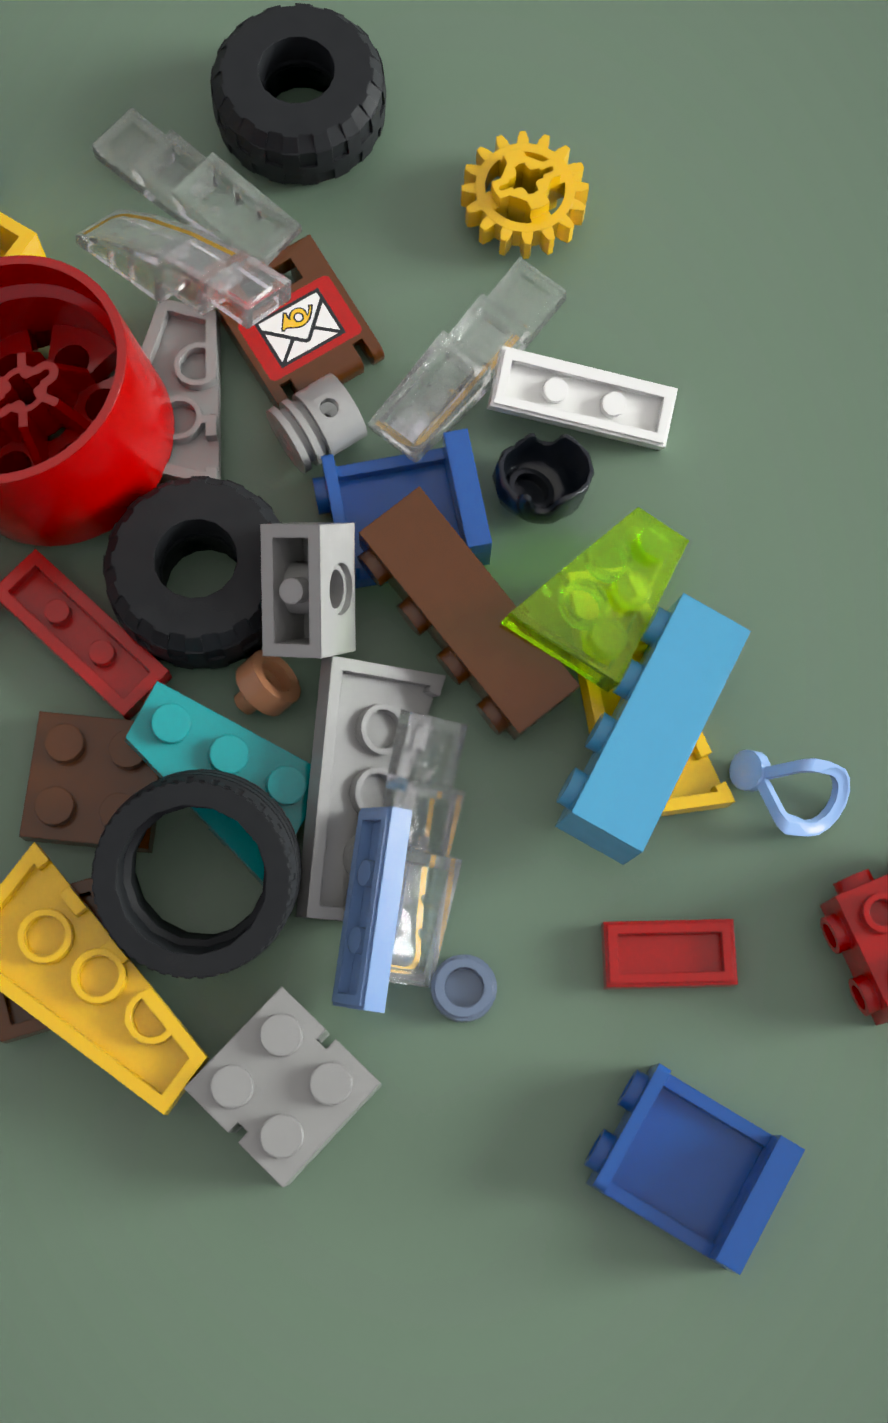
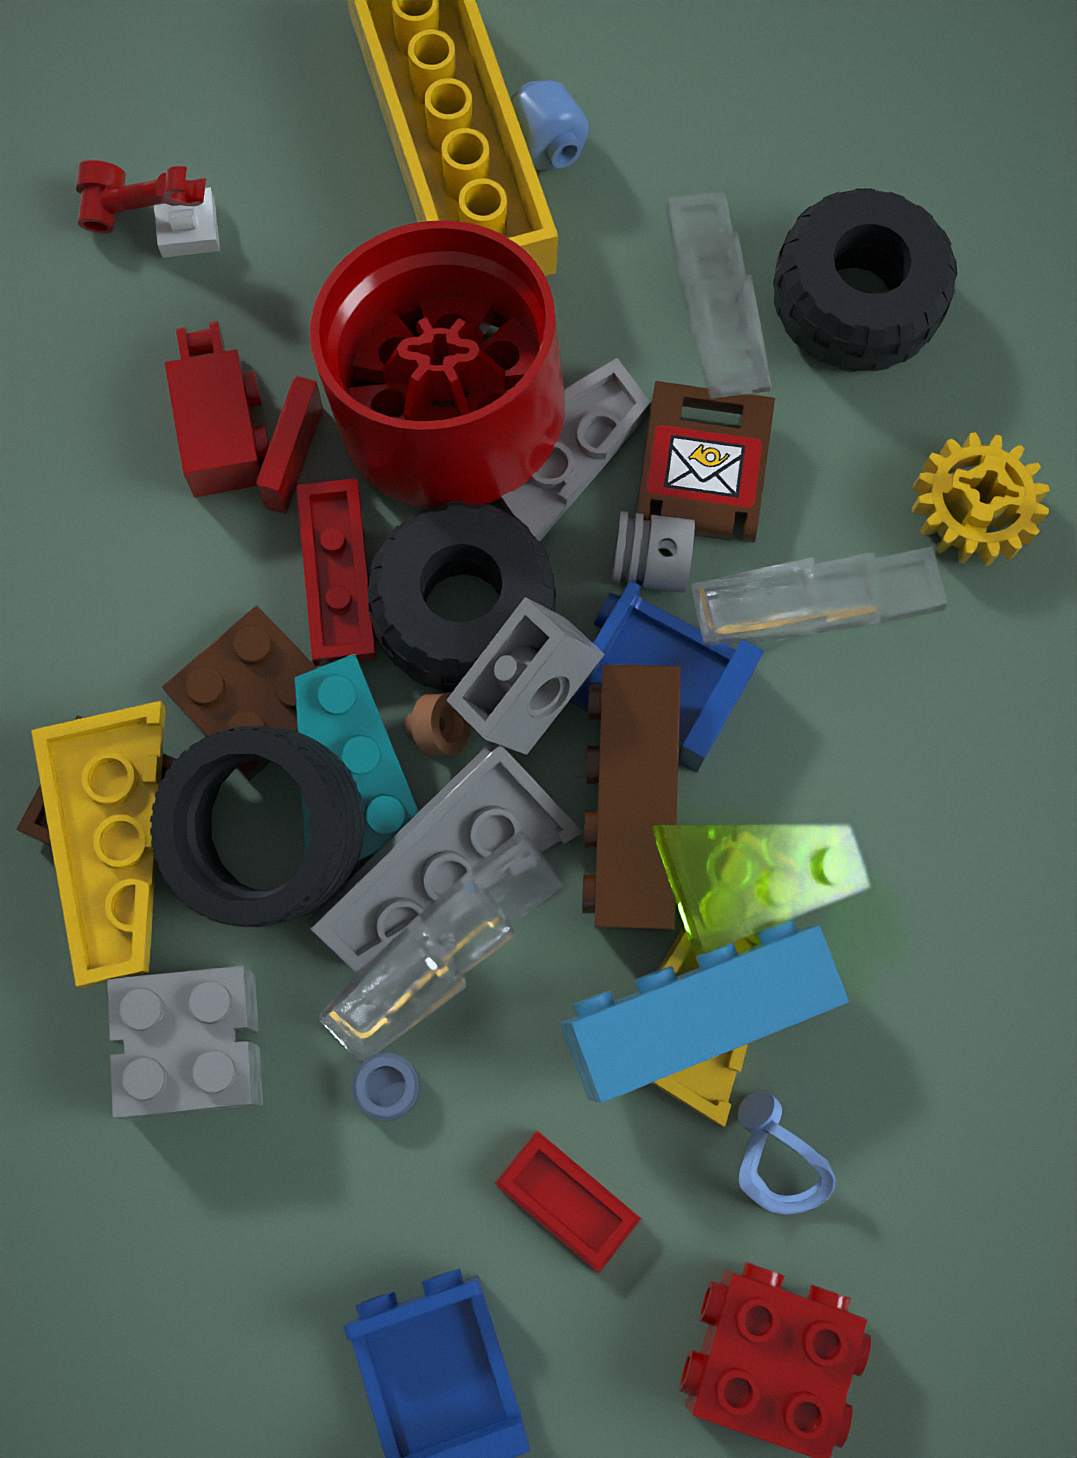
camera: 40 degrees right, 0 degrees up
(185, 262) = (656, 349): clear slope -> none
(372, 908) = (362, 965): medium blue tile -> none
(543, 478) = (794, 739): black hair -> none
(582, 398) = (884, 701): white tile -> none

